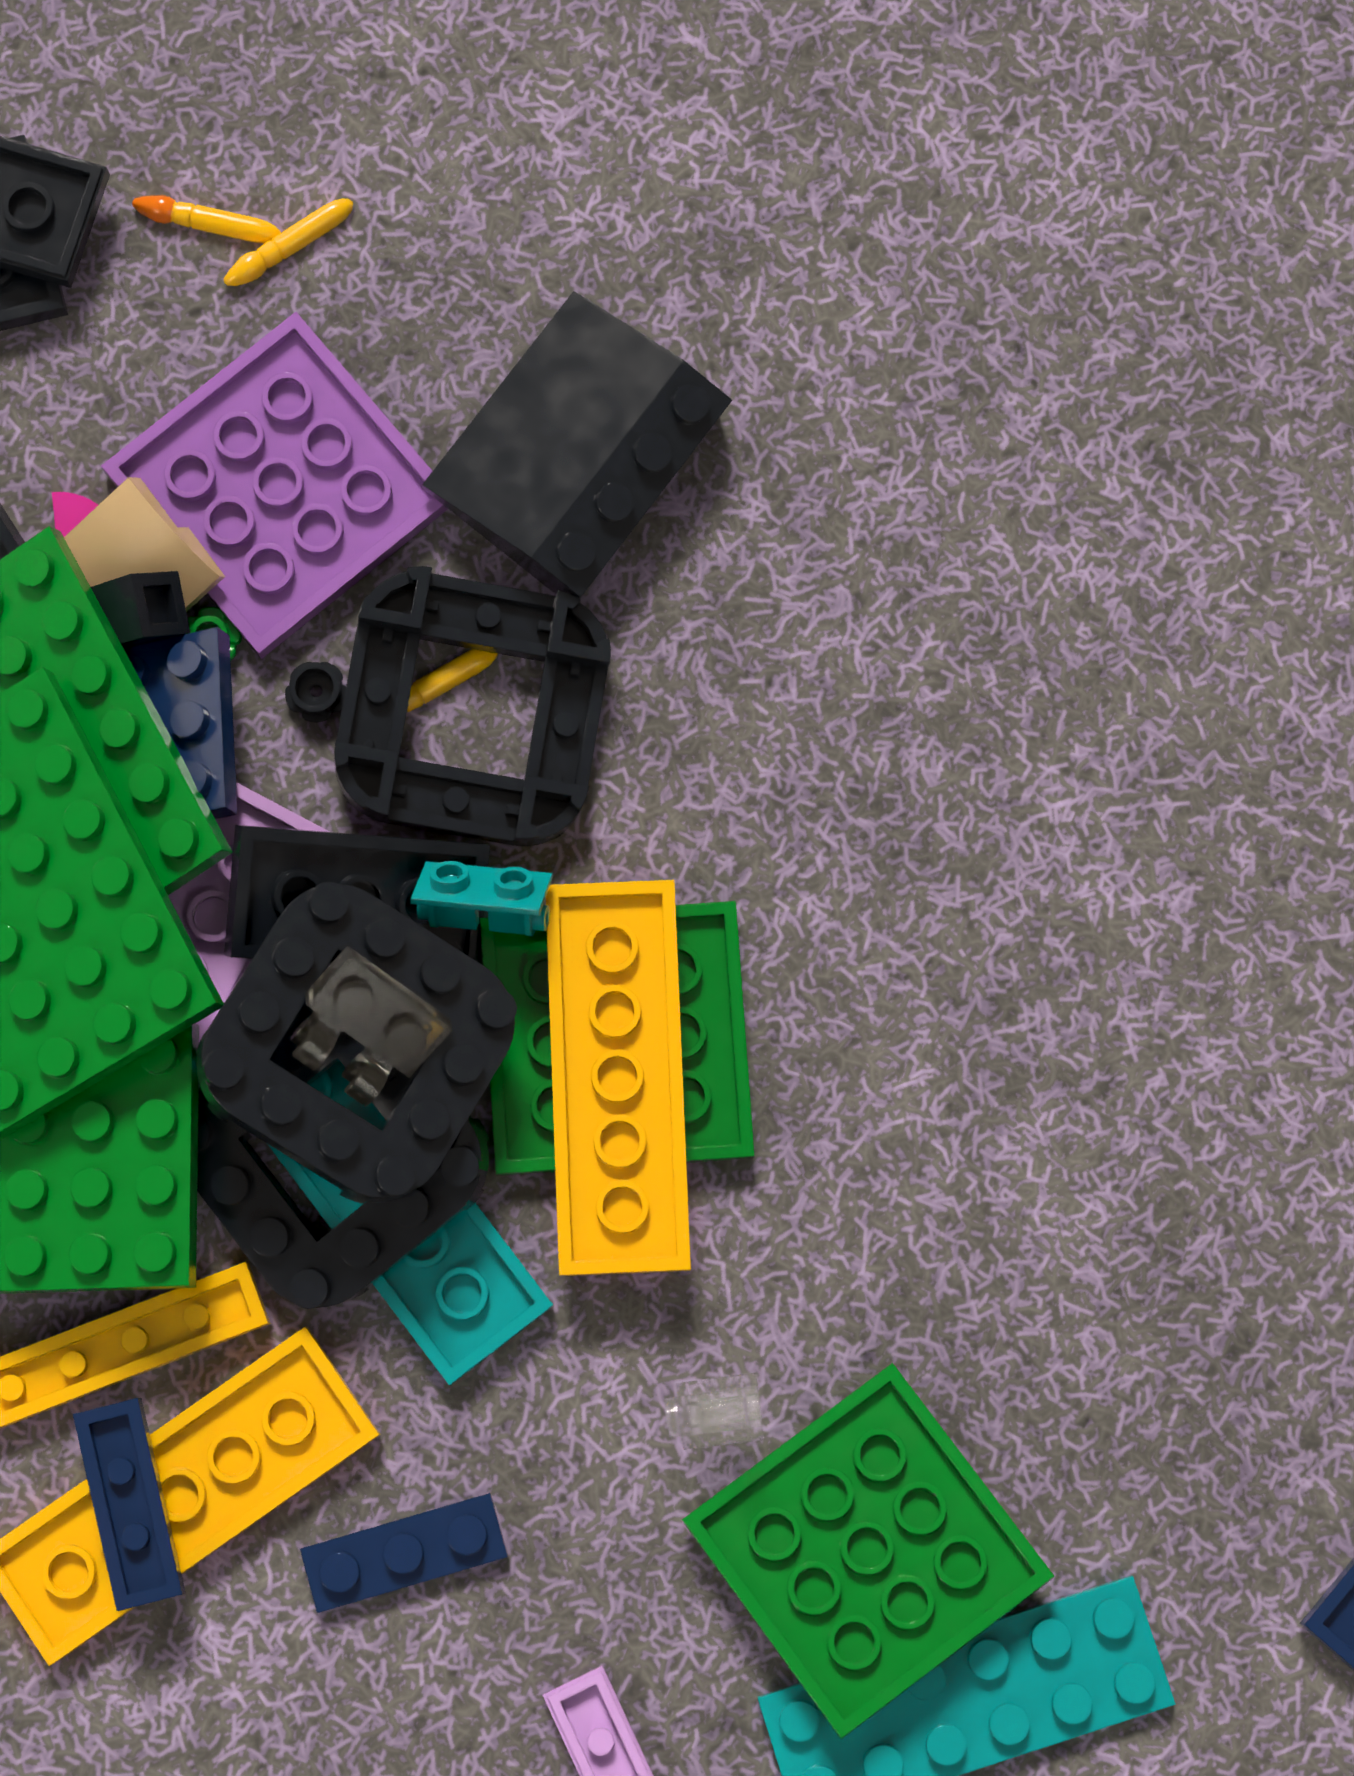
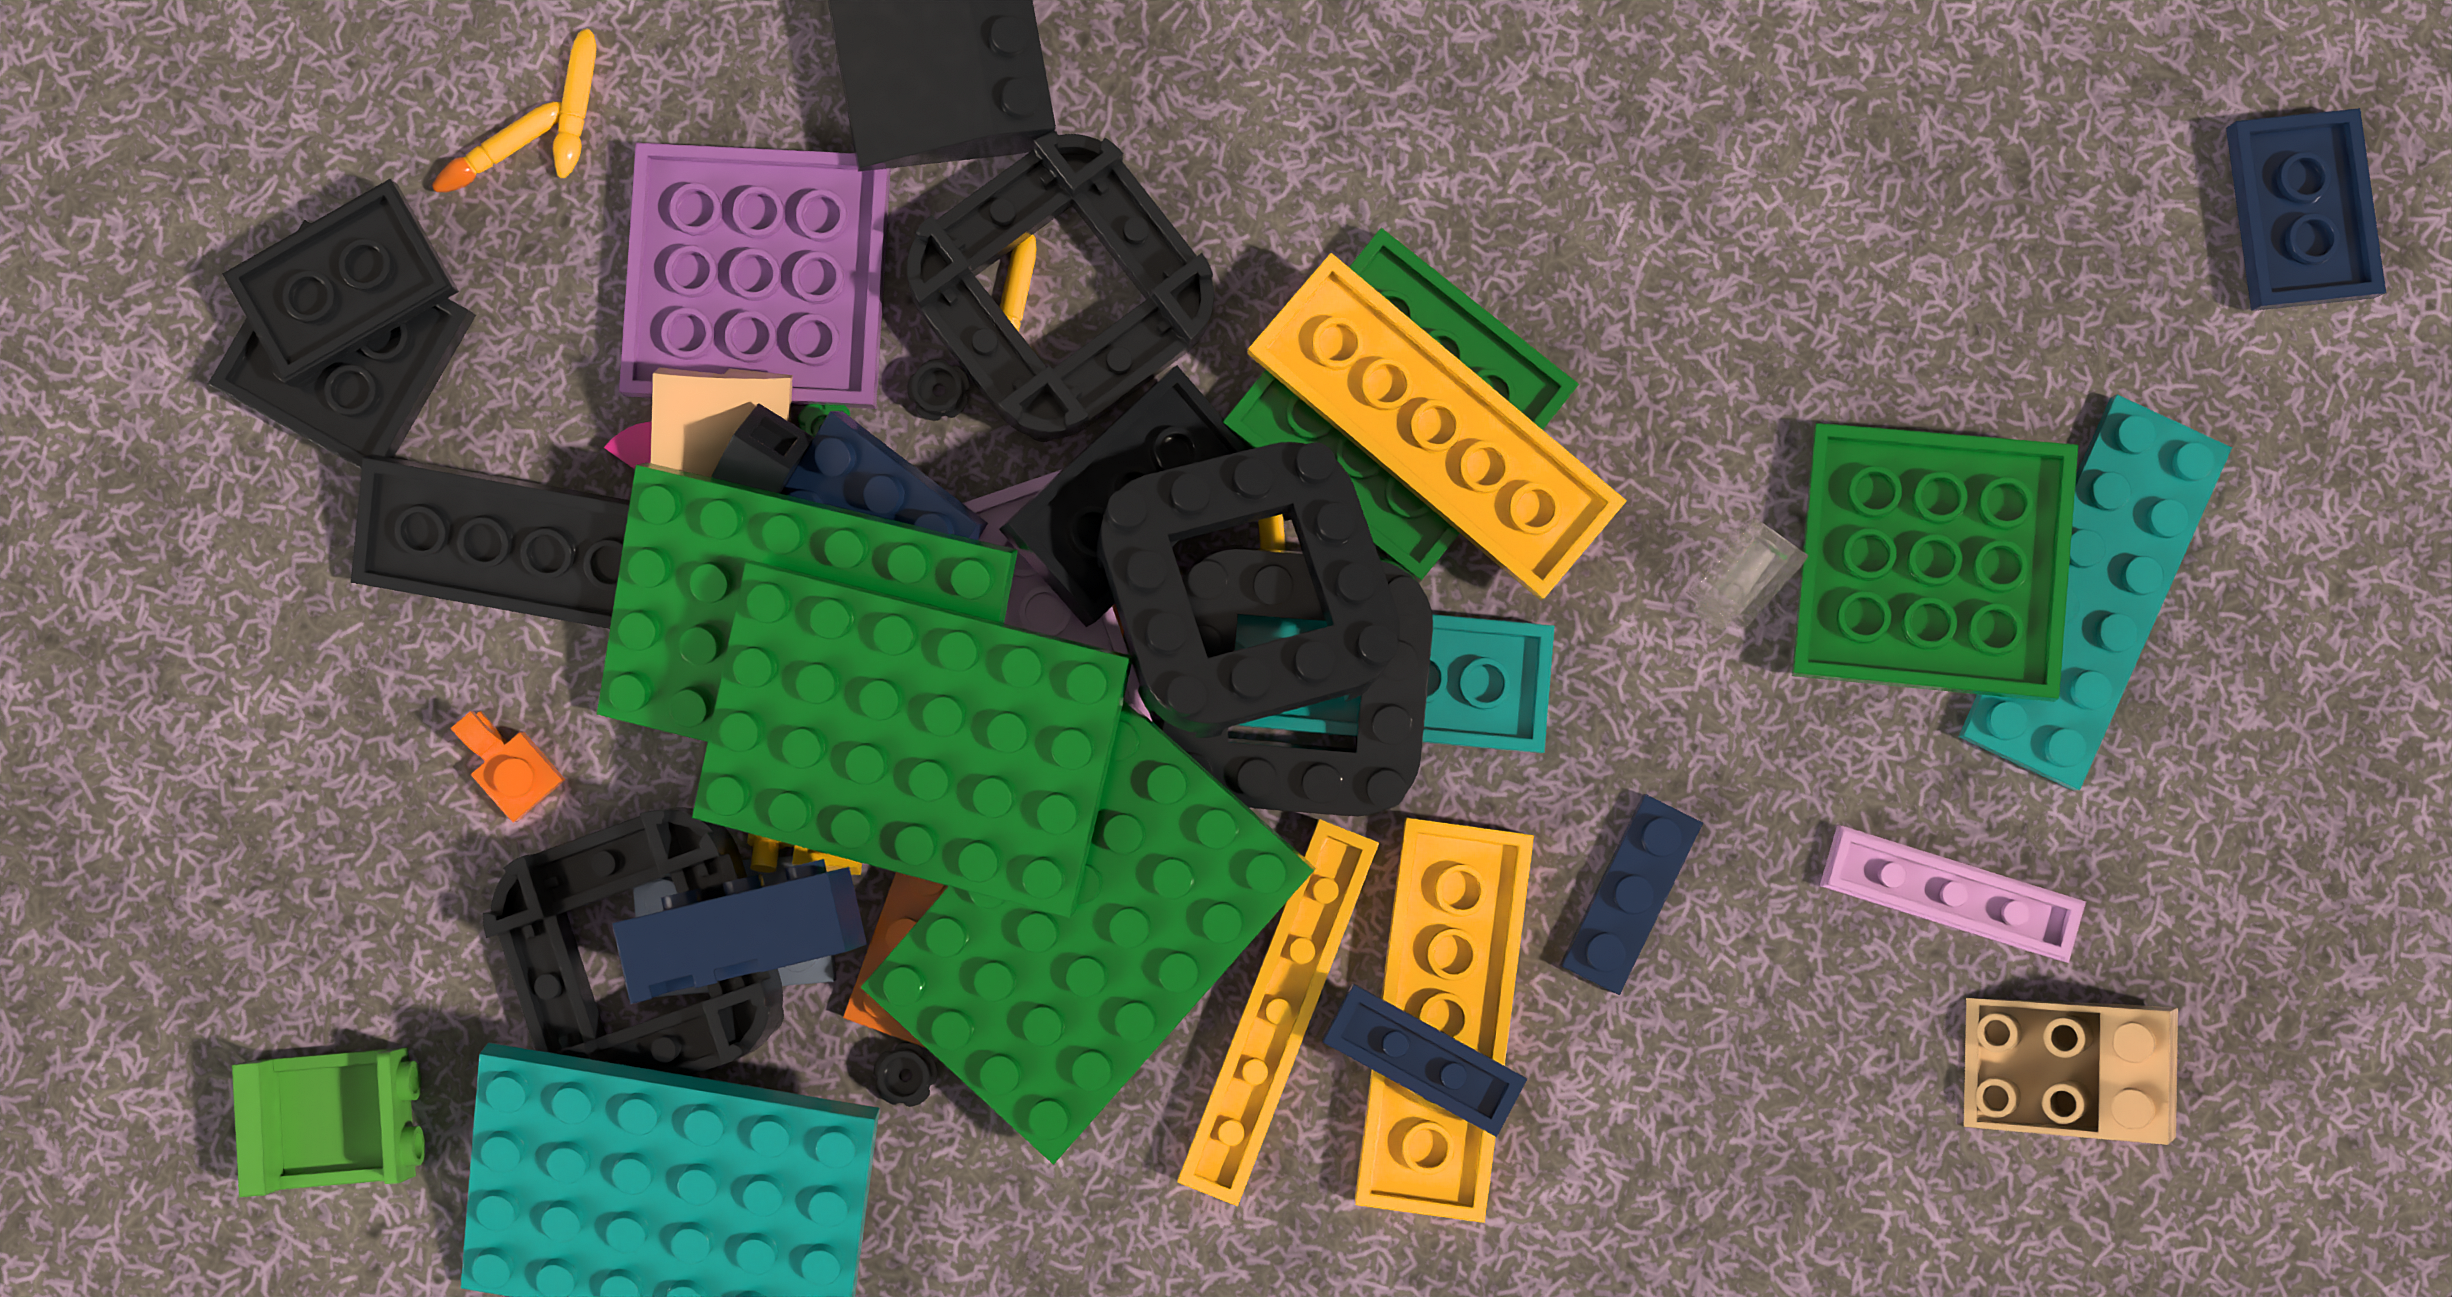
camera: 50 degrees left, 5 degrees up
(376, 1012) = (1241, 549): clear smoke plate -> none
(455, 892) = (1194, 417): teal hinge -> none

